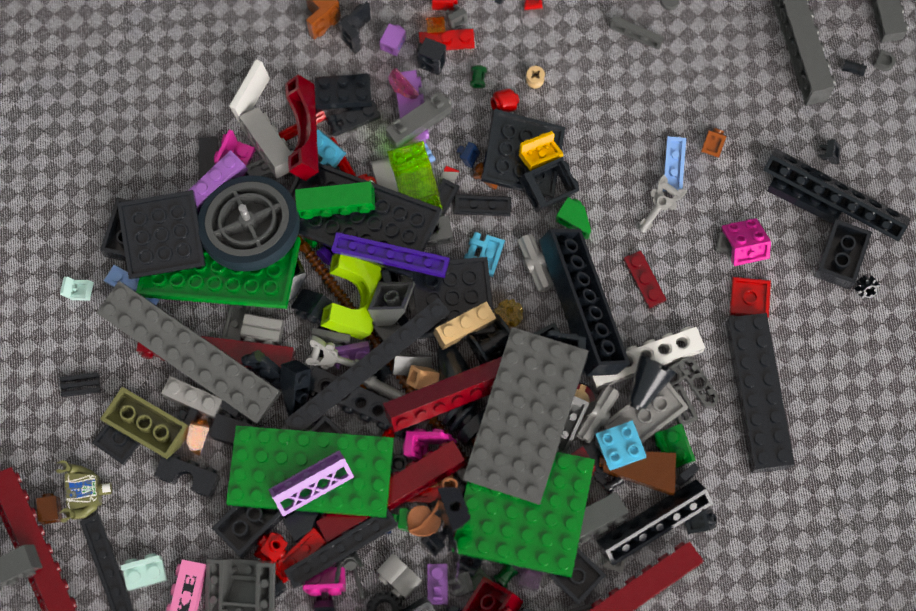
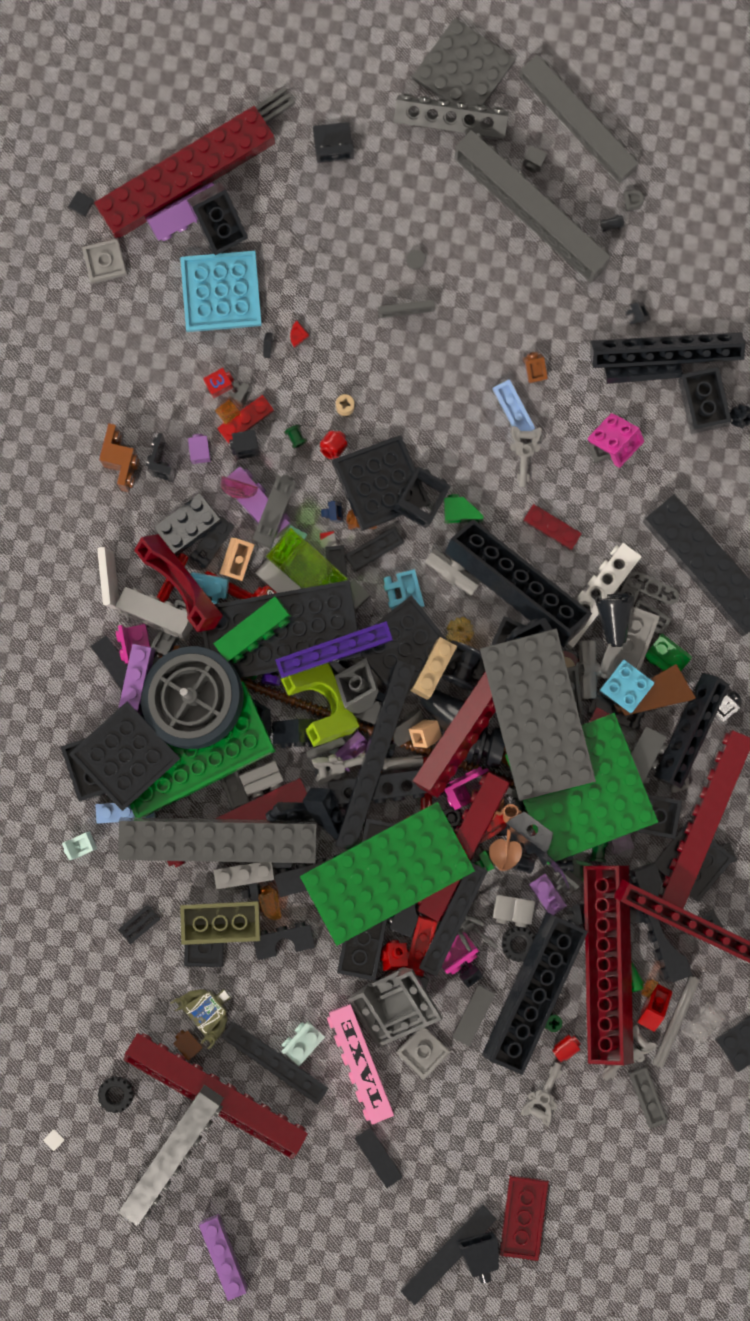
camera: 35 degrees left, 10 degrees up
(308, 477) = (393, 882): fence -> none
(363, 141) = (236, 559): none -> light nougat brick
(539, 151) = (396, 473): yellow bracket -> none
(687, 474) = (694, 673): black tile -> none
(749, 296) = (649, 486): red tile -> none

